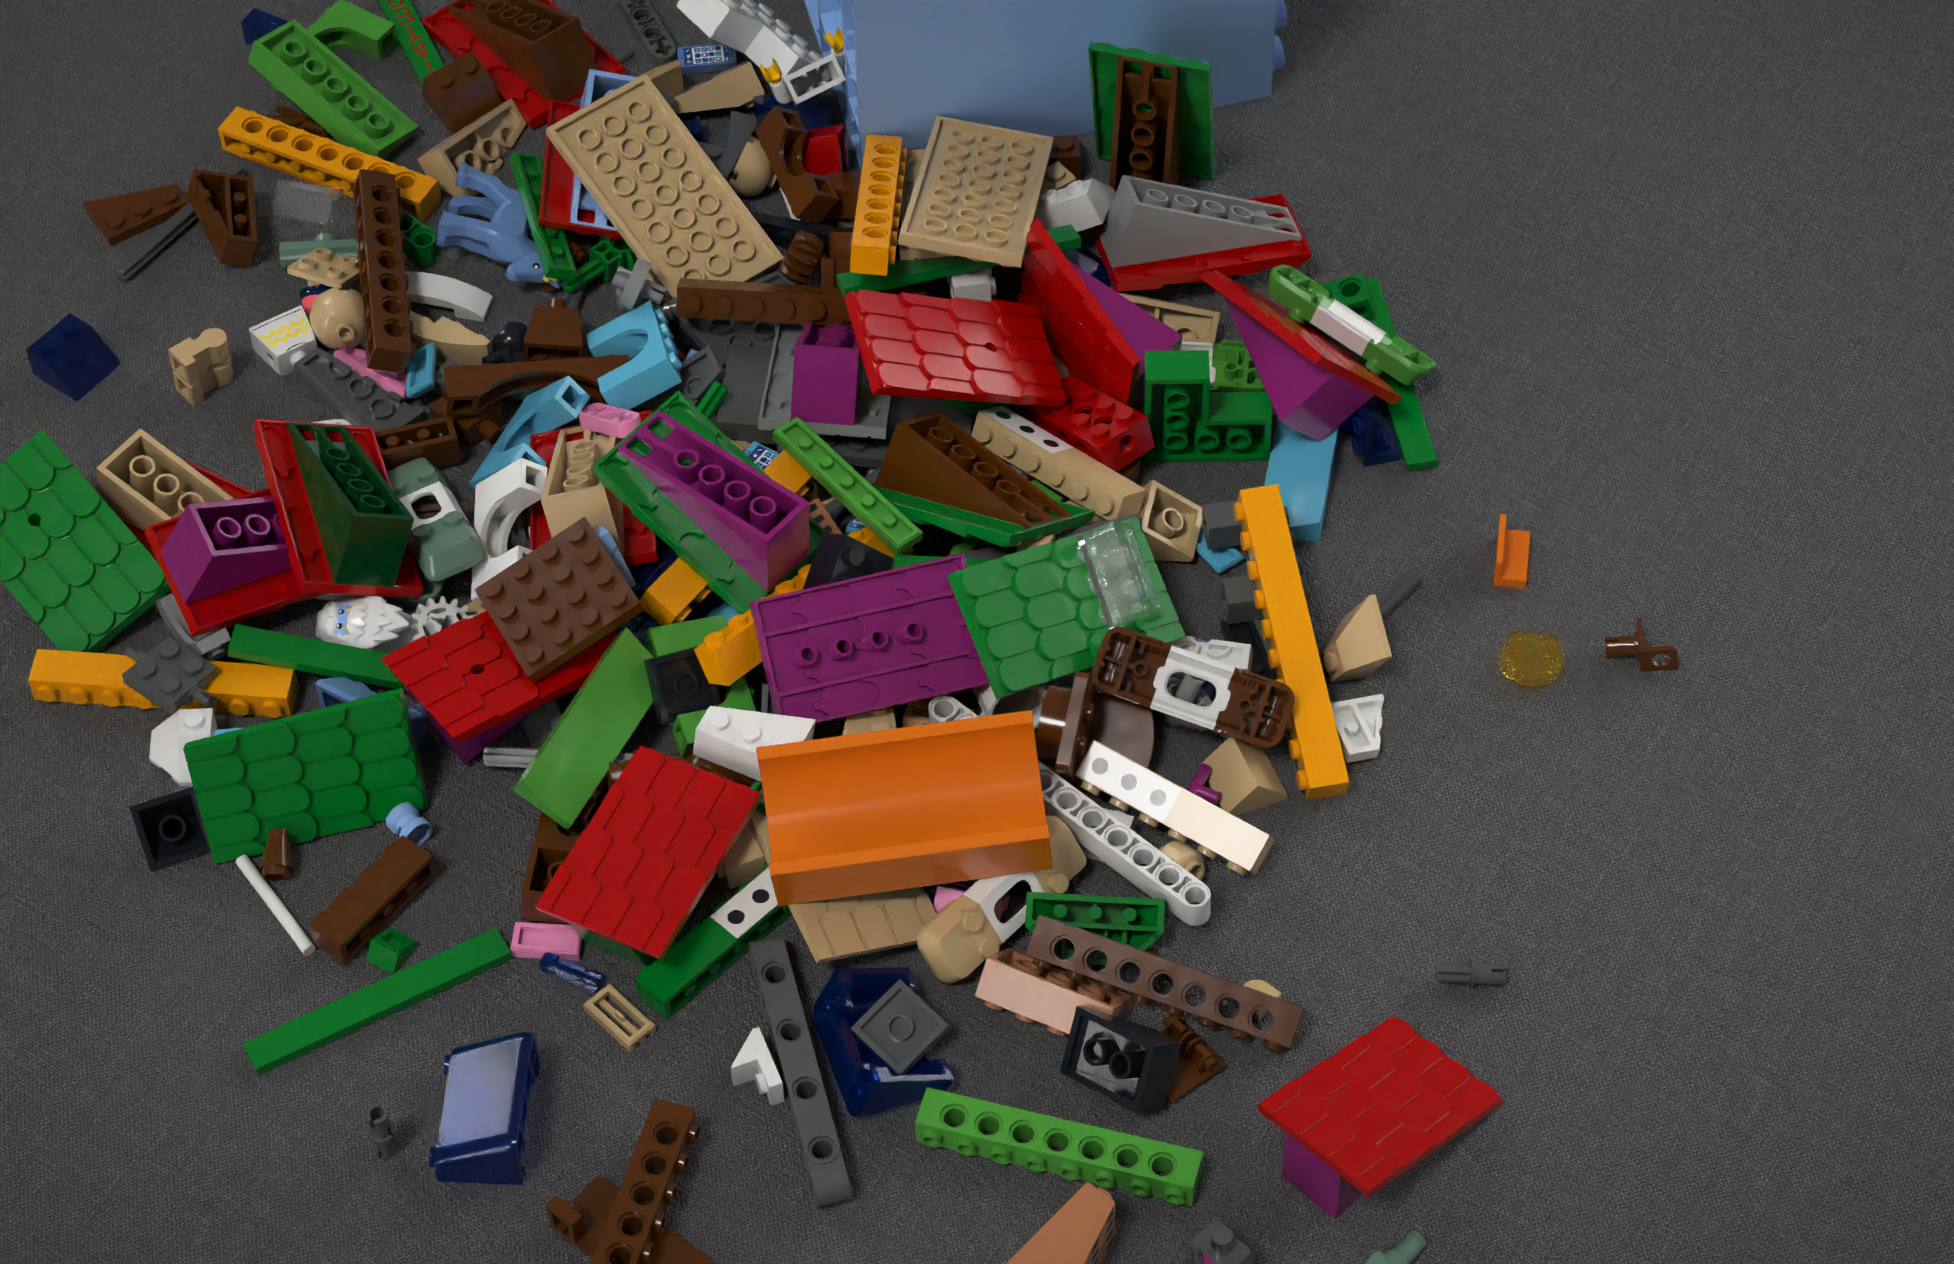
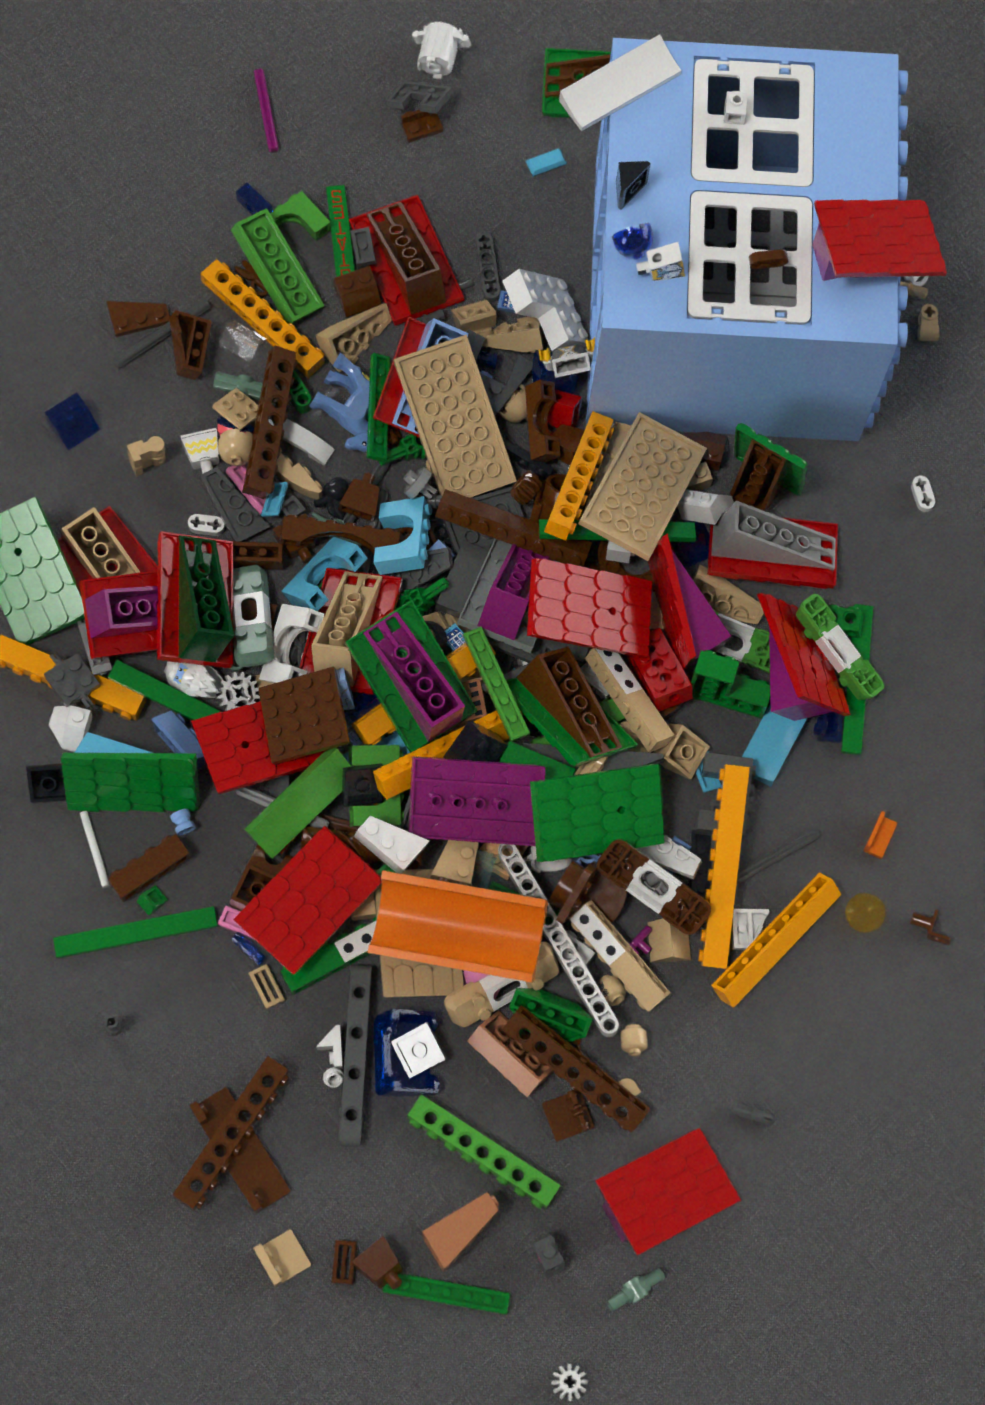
camera: 10 degrees right, 20 degrees up
(277, 858) = (102, 821): reddish brown cone -> none
(451, 38) = (363, 247): none -> dark grey panel
(486, 1111) = (174, 1027): clear blue windscreen -> none
(608, 419) = (374, 575): bright pink beam -> none
(782, 1113) = (334, 1081): none -> white plate
(1118, 575) = (634, 805): clear slope -> none
(1121, 1059) = (534, 1111): black slope -> none
(1241, 922) = (634, 1039): none -> tan head
(1358, 643) = (763, 876): tan slope -> none
(1387, 132) = (927, 493): none -> white beam
(1409, 726) = (776, 939): none -> light orange brick

